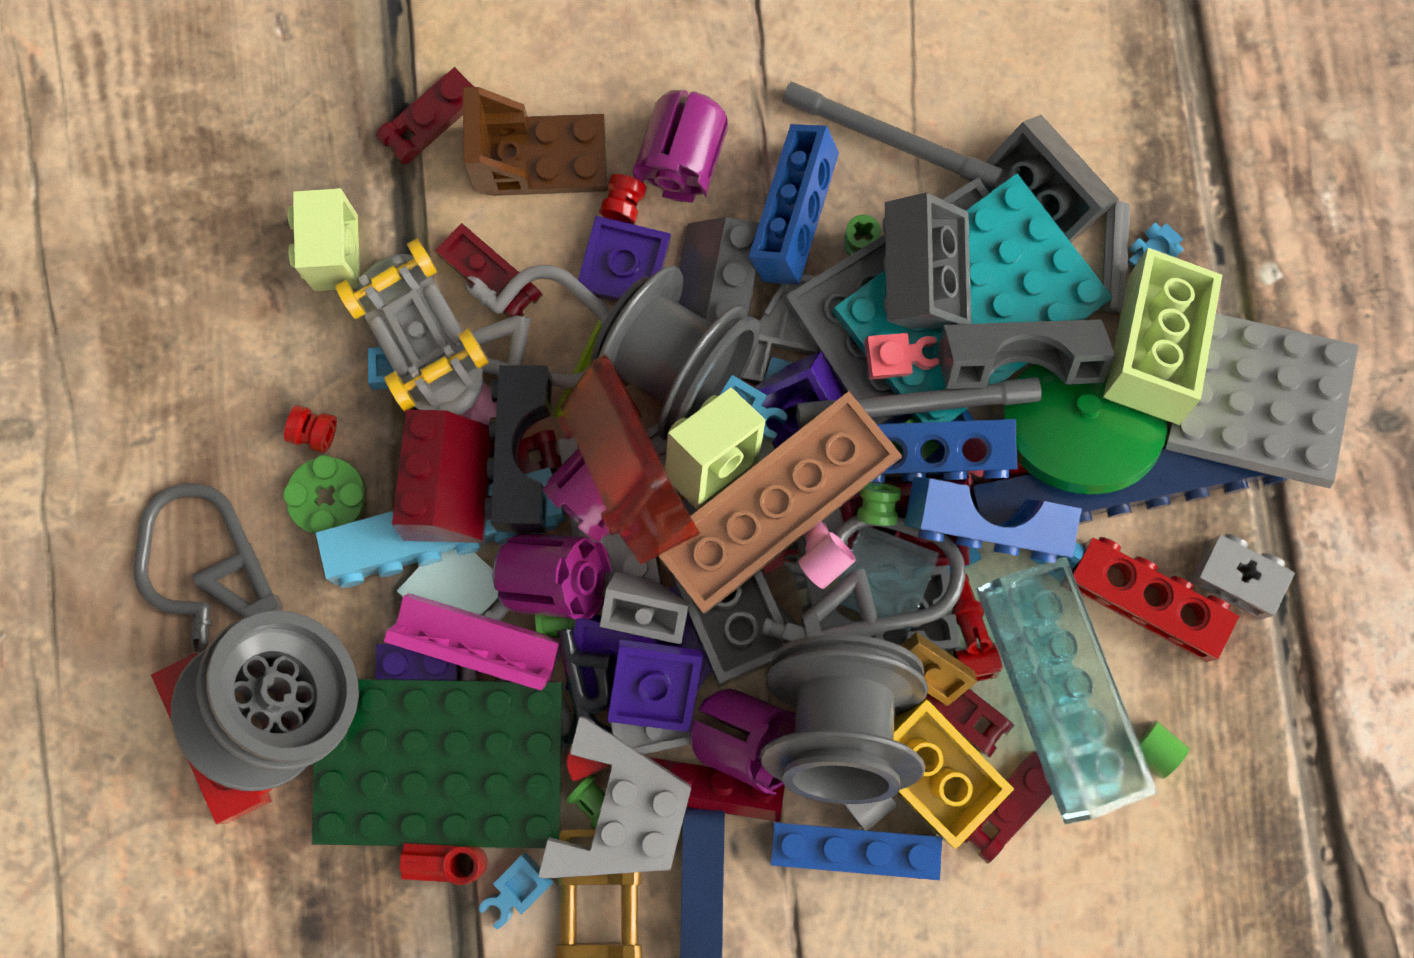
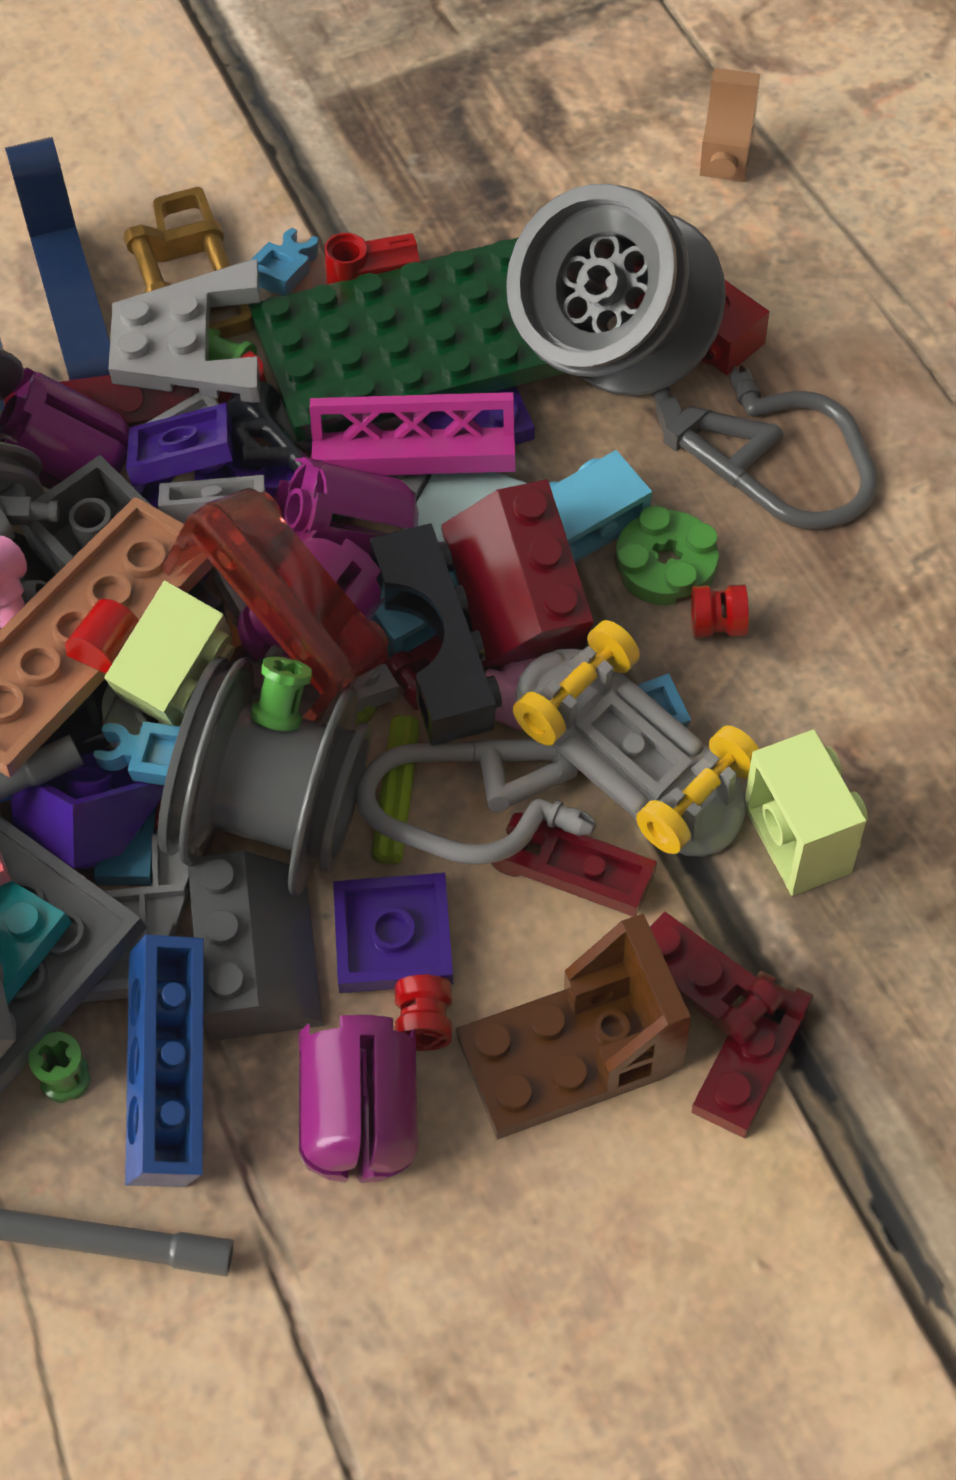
camera: 160 degrees right, 20 degrees down
(90, 893) = (729, 124): none -> medium nougat arch
(439, 163) = (714, 981): none -> dark red plate
(643, 370) = (281, 694): none -> bright green bush
(757, 471) = (101, 634): none -> red brick

